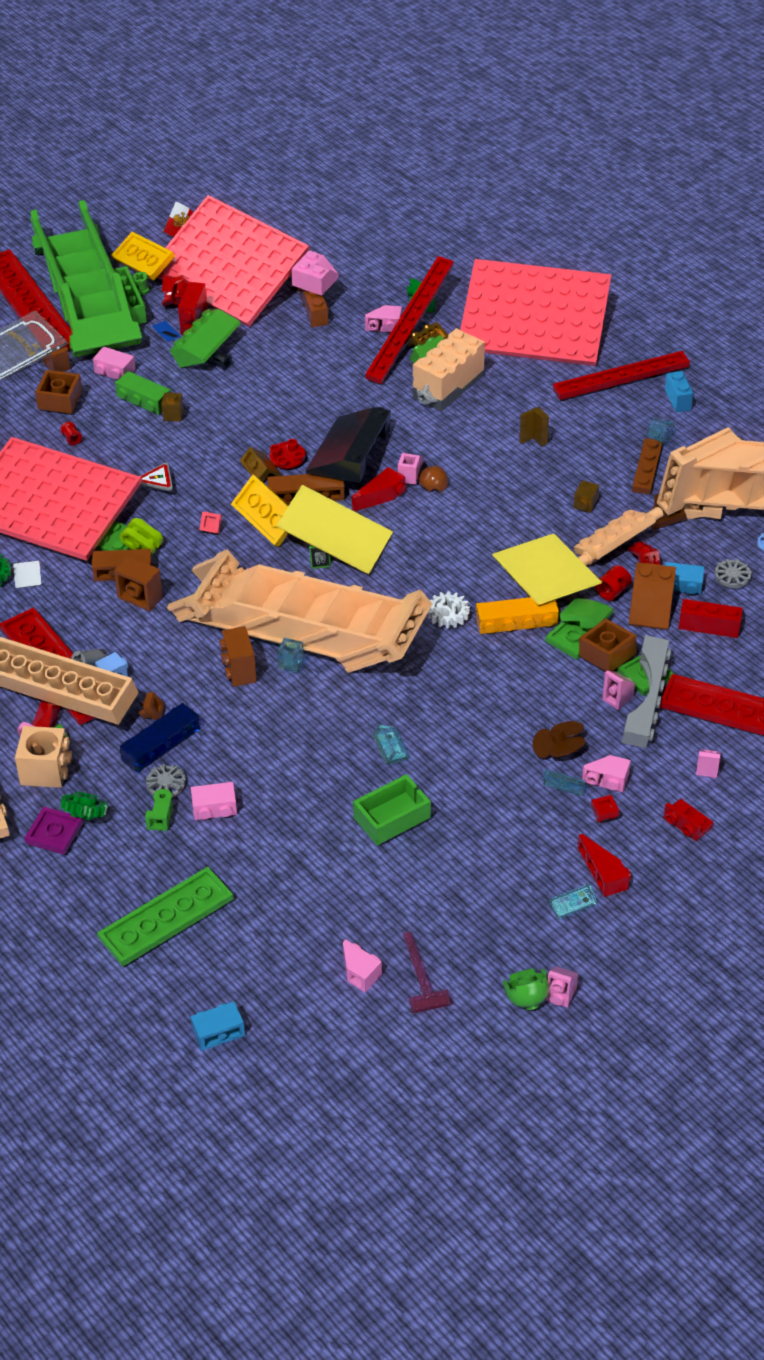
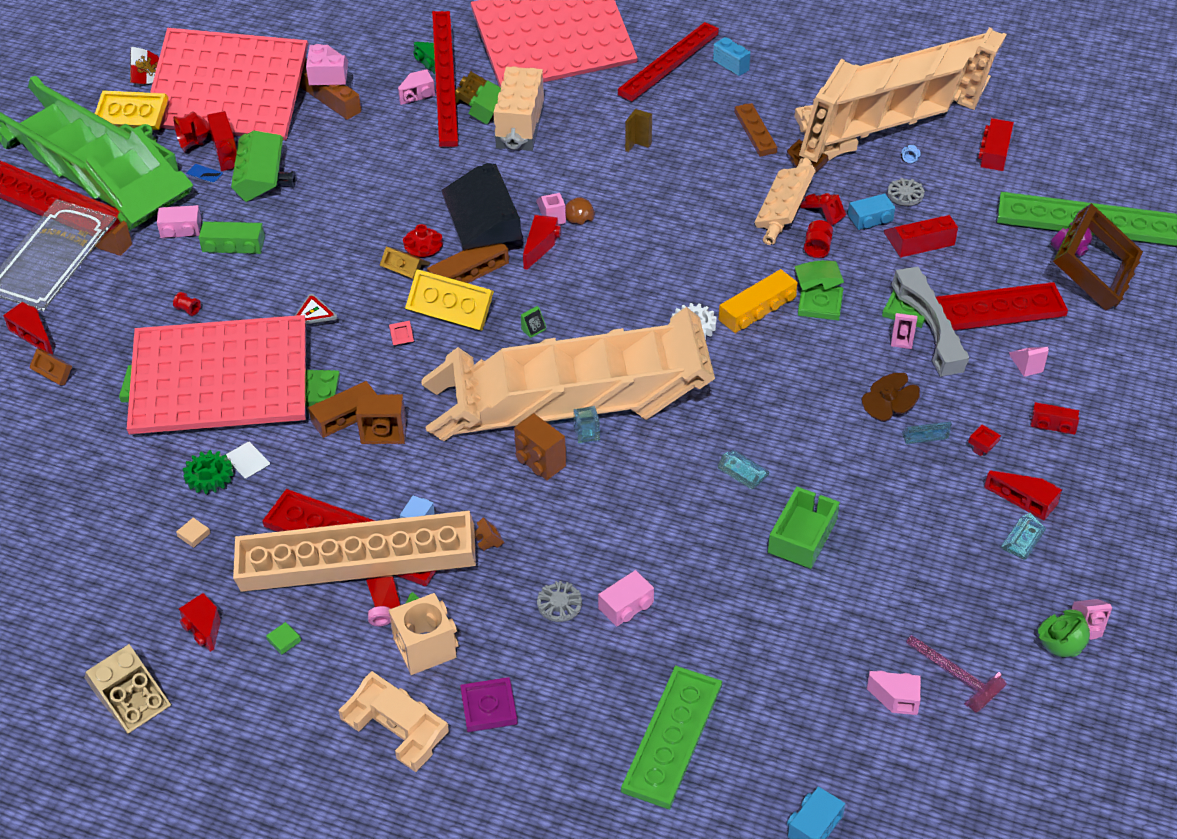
camera: 30 degrees left, 0 degrees up
(58, 391) = (144, 267): dark orange brick -> none
(83, 805) = (504, 663): green gear -> none
(89, 656) = (390, 510): light grey piece -> none
(141, 536) = (343, 373): lime brick -> none
(159, 737) = (520, 561): clear blue brick -> none
(160, 816) = (583, 633): bright green leg -> none
(172, 407) = (274, 239): pearl gold brick -> none
(334, 529) = (532, 290): light yellow piece -> none
(546, 569) = (751, 250): light yellow piece -> none
(586, 496) = (729, 174): pearl gold brick -> none
(607, 645) = (864, 294): dark orange brick -> none
(607, 772) = (959, 406): bright pink slope -> none
(652, 596) = (864, 235): dark orange slope -> none
(660, 429) = (745, 93): clear light blue brick -> none

